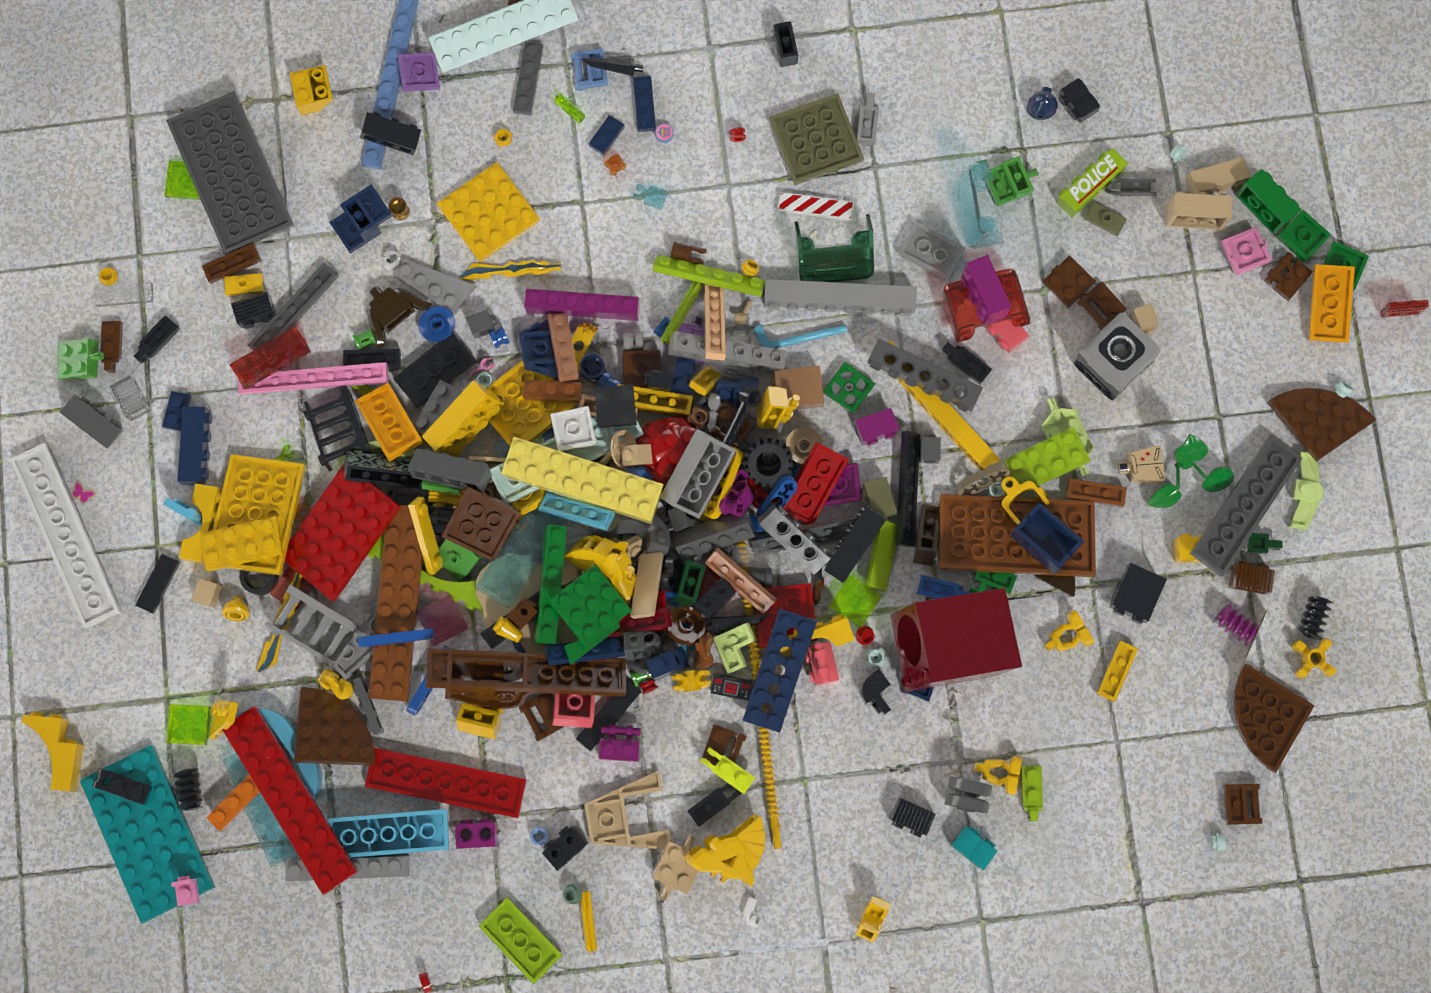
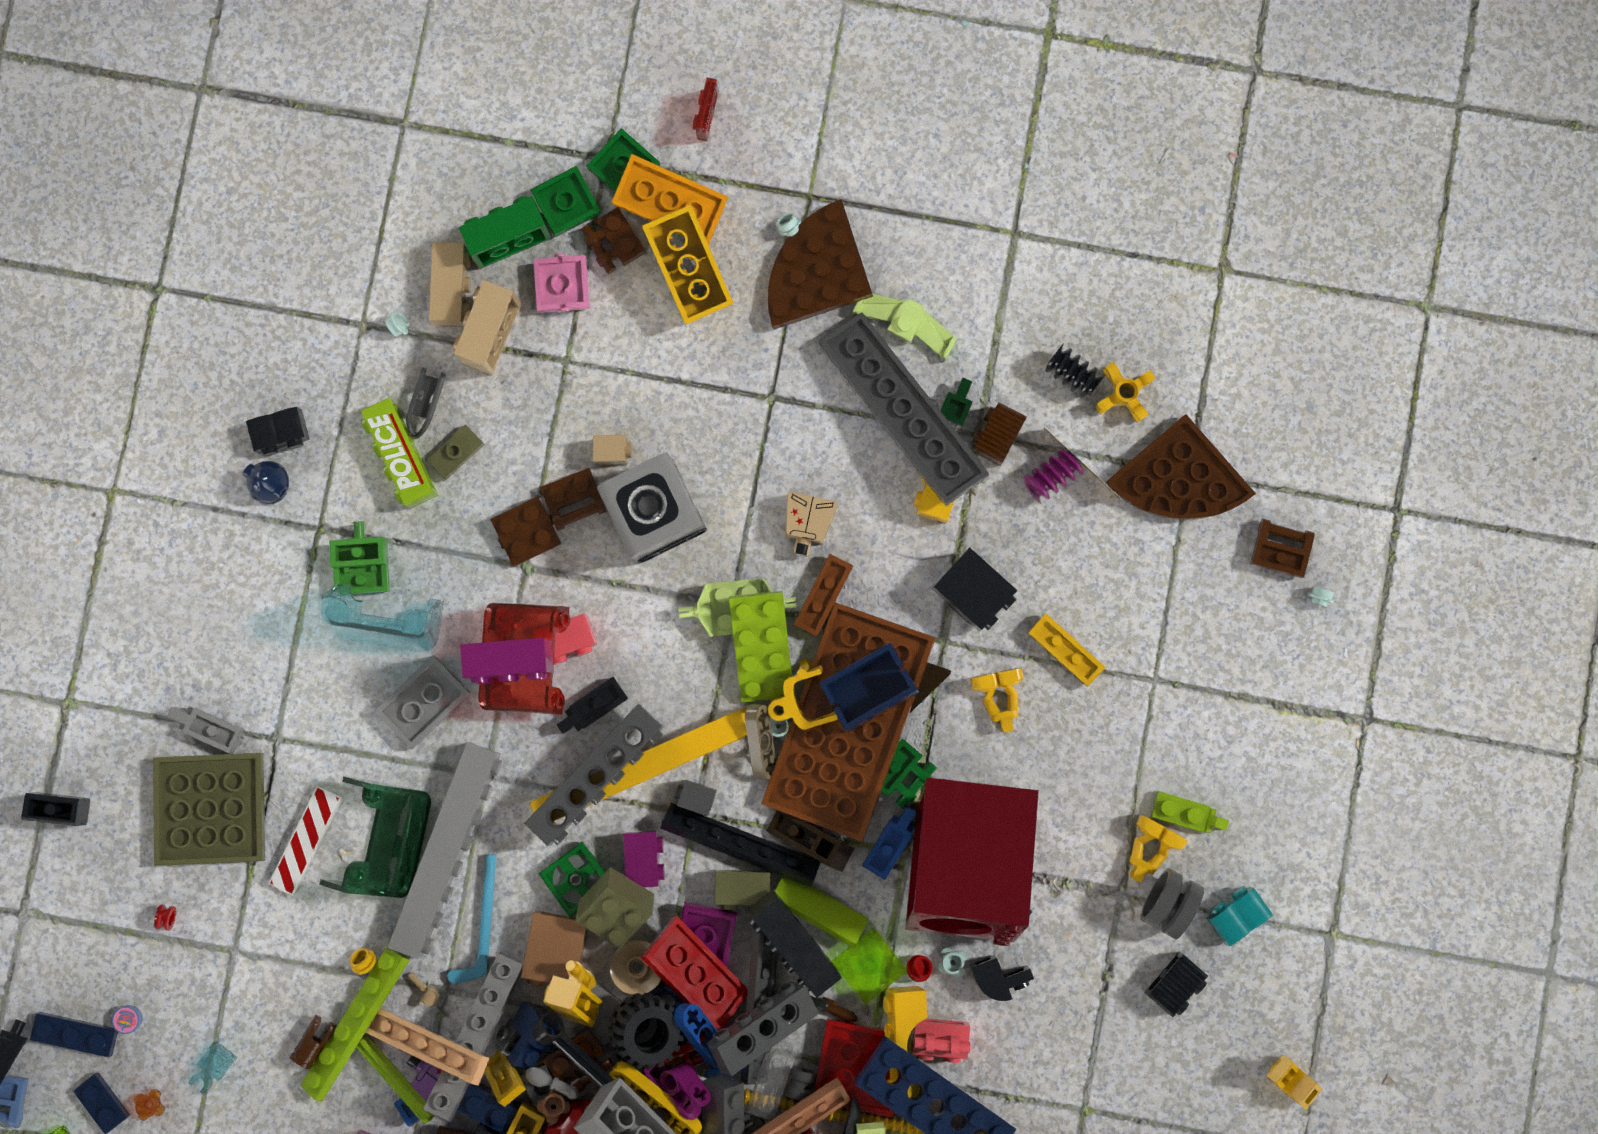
camera: 75 degrees left, 5 degrees up
(841, 416) = (615, 907): none -> olive brick
(1190, 451) = (814, 464): green plant -> none
(1304, 330) = (694, 248): none -> yellow brick

